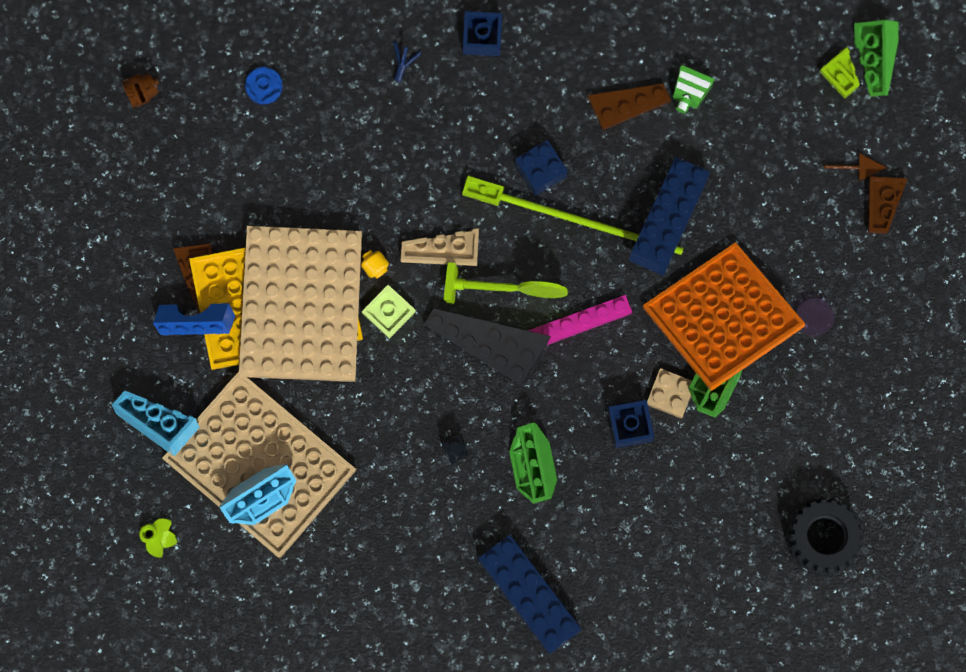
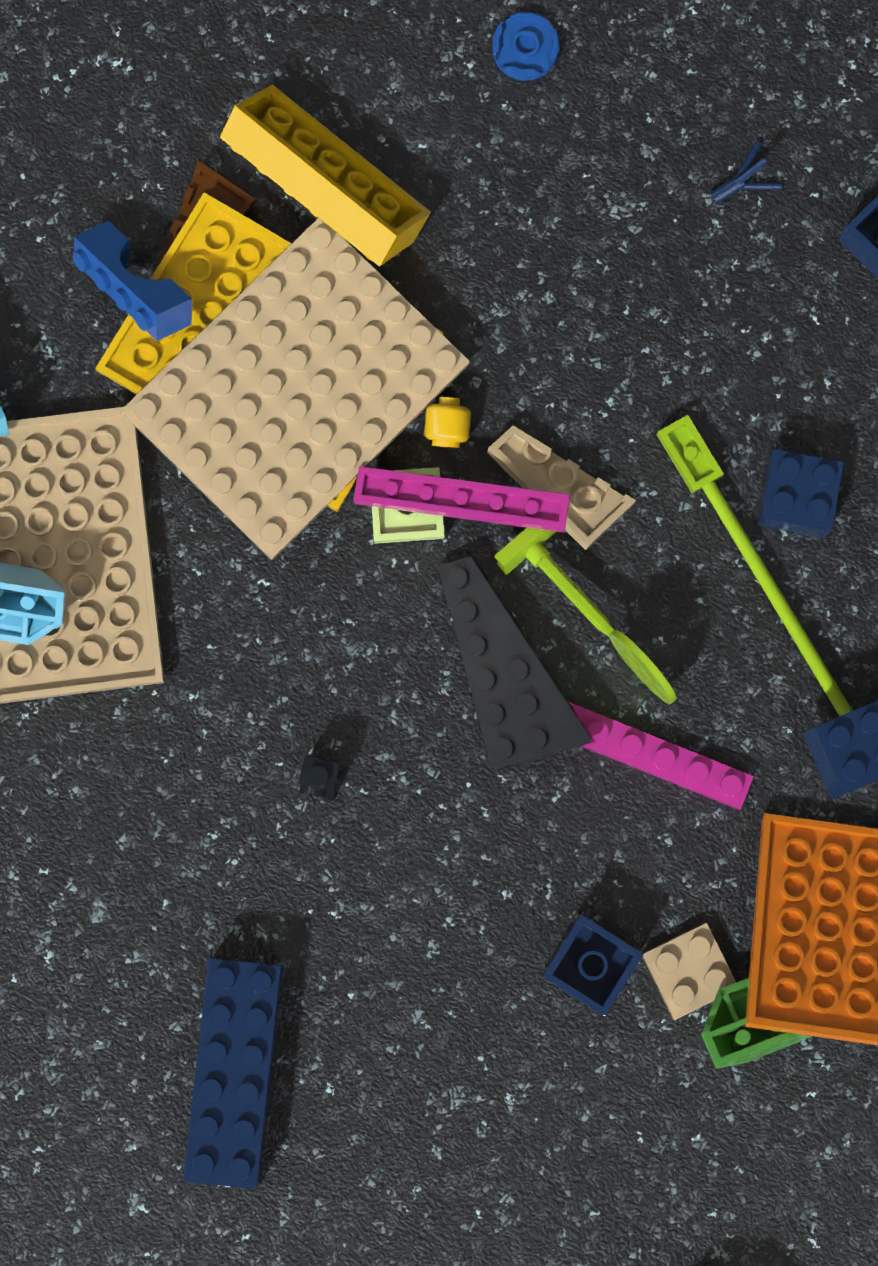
camera: 45 degrees right, 5 degrees up
(232, 208) = (324, 174): none -> yellow brick
(410, 288) = (461, 499): none -> dark pink plate
(533, 463) = (406, 897): bright green wedge -> none

